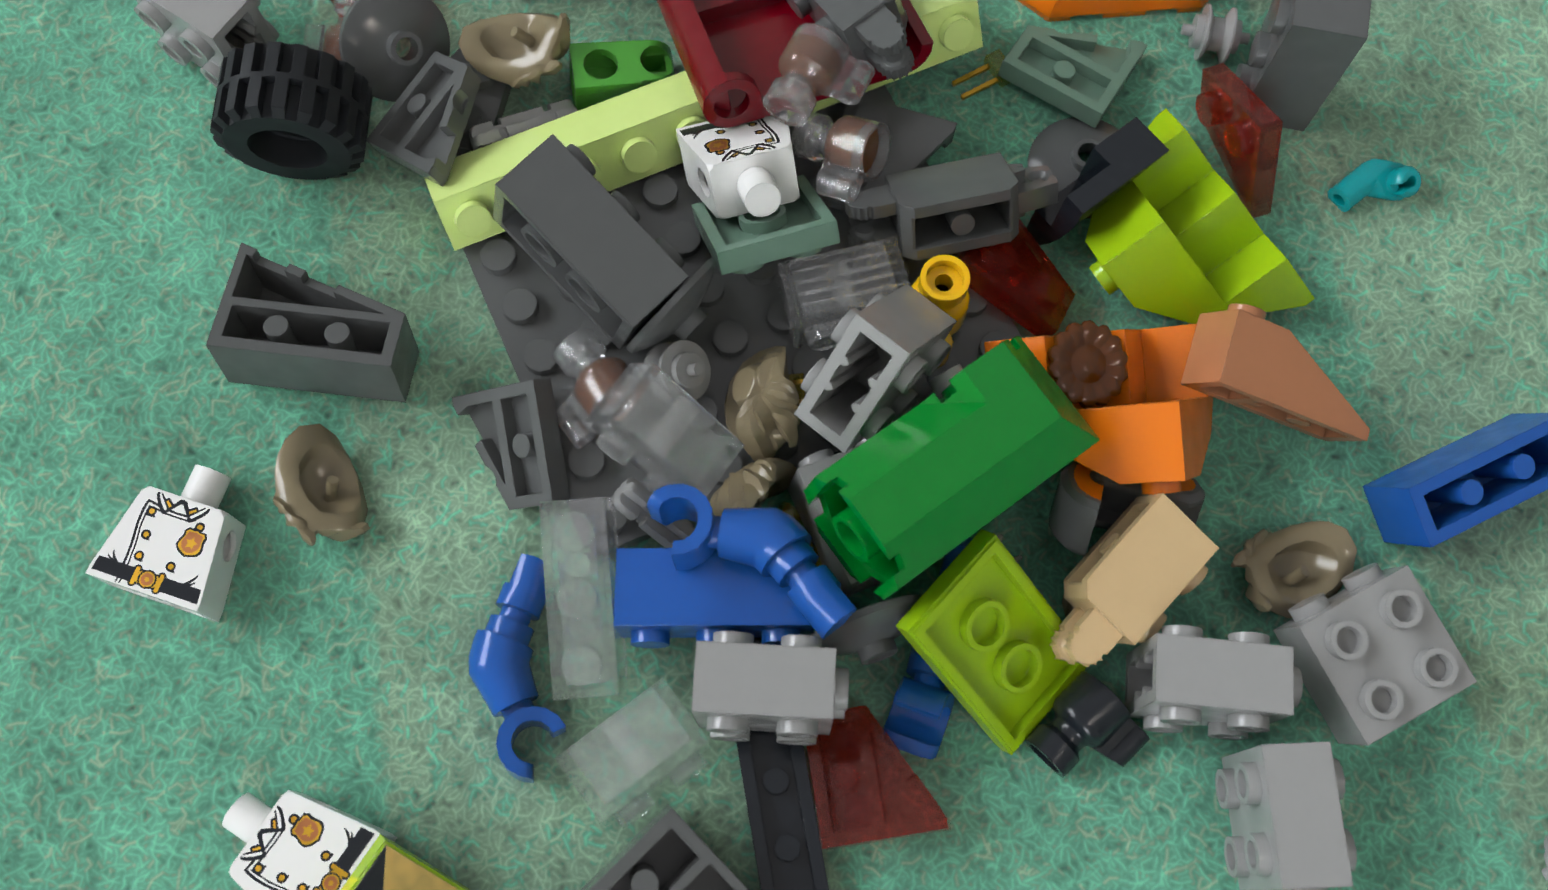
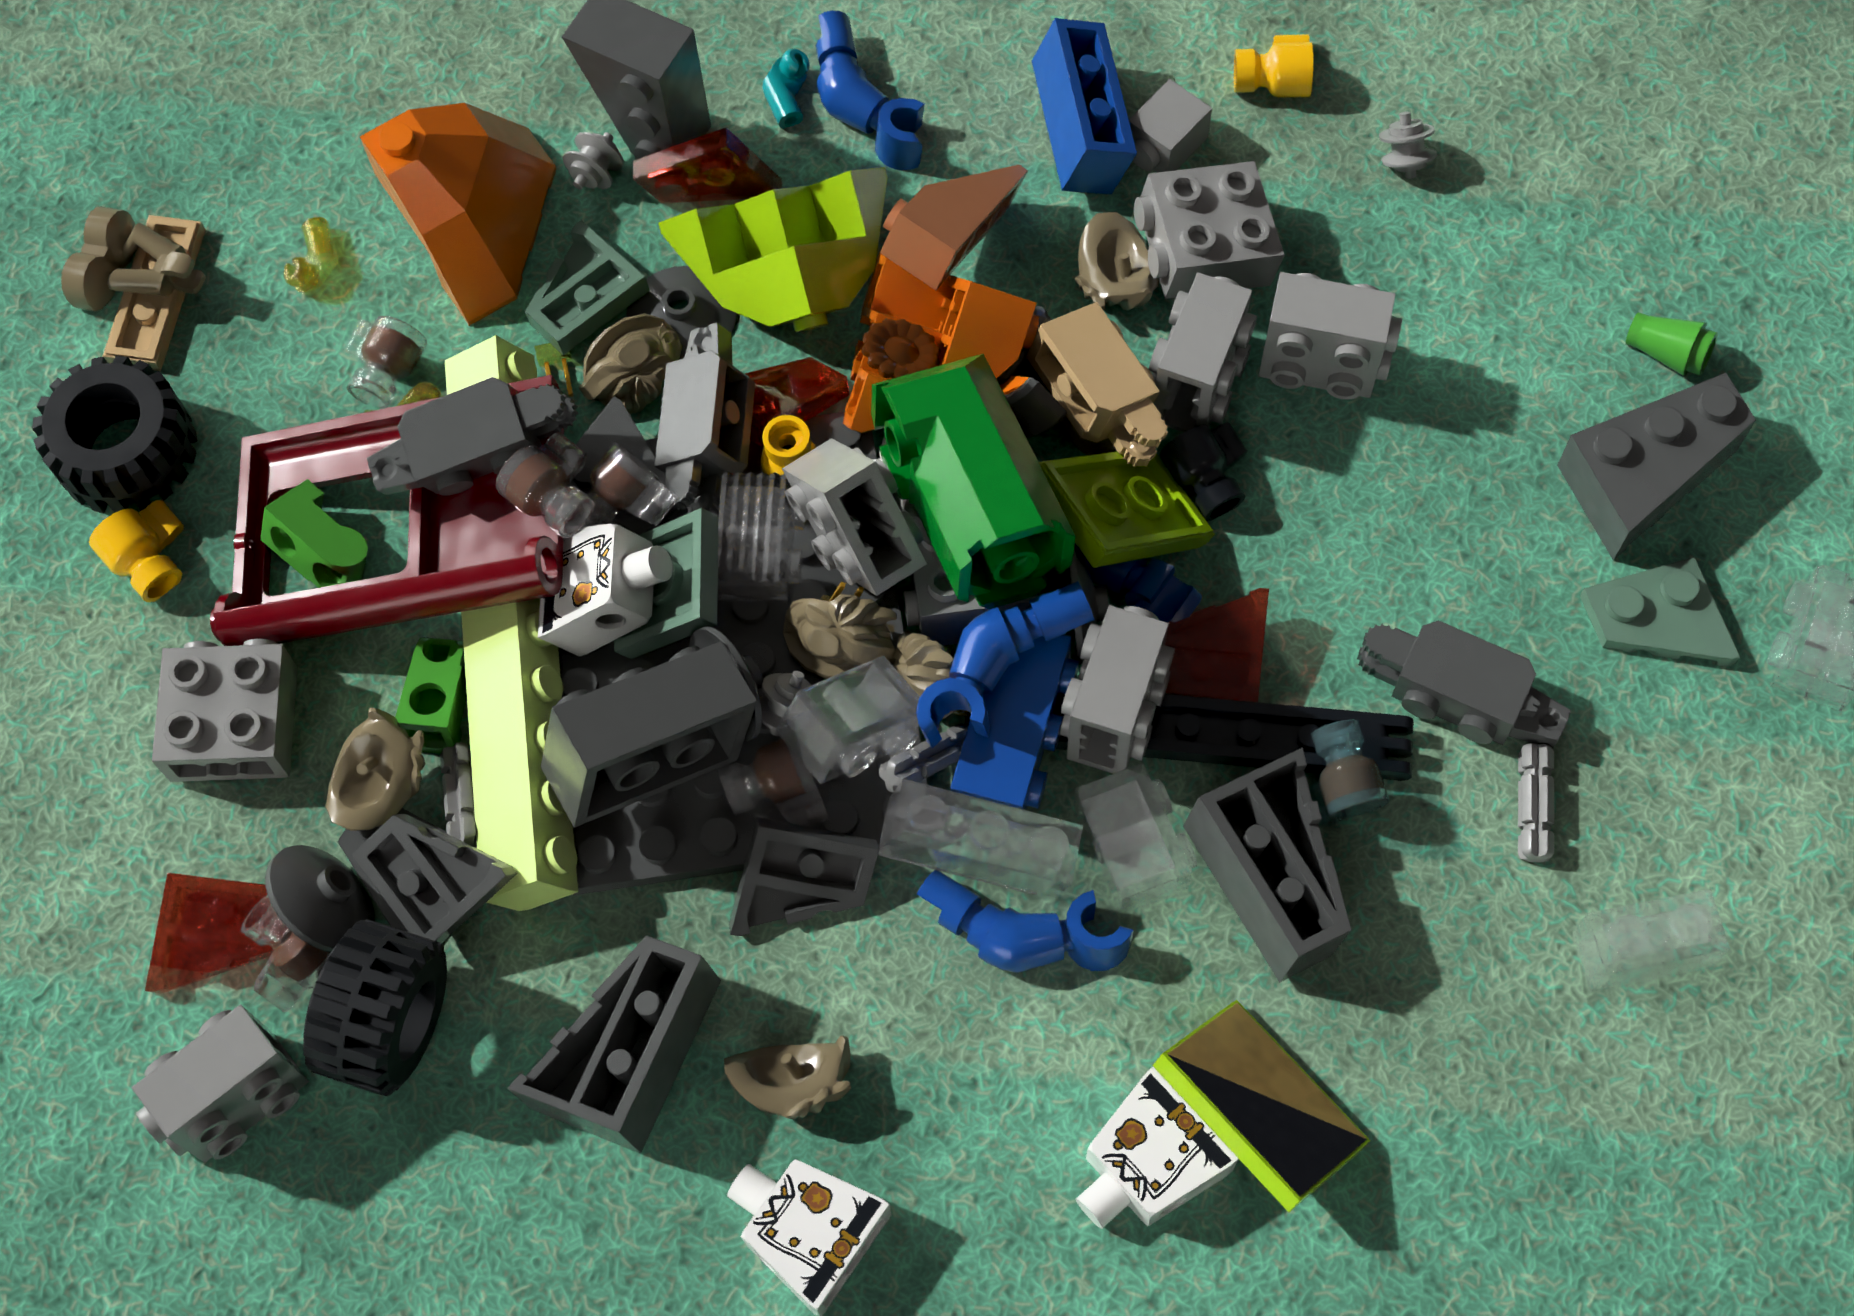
camera: 70 degrees left, 5 degrees down
(1014, 127) = (630, 361): none -> dark tan hat
(1105, 173) = (723, 292): black slope -> none
(1386, 250) = (859, 103): none -> blue piece
(1485, 578) = (1169, 128): none -> light grey brick

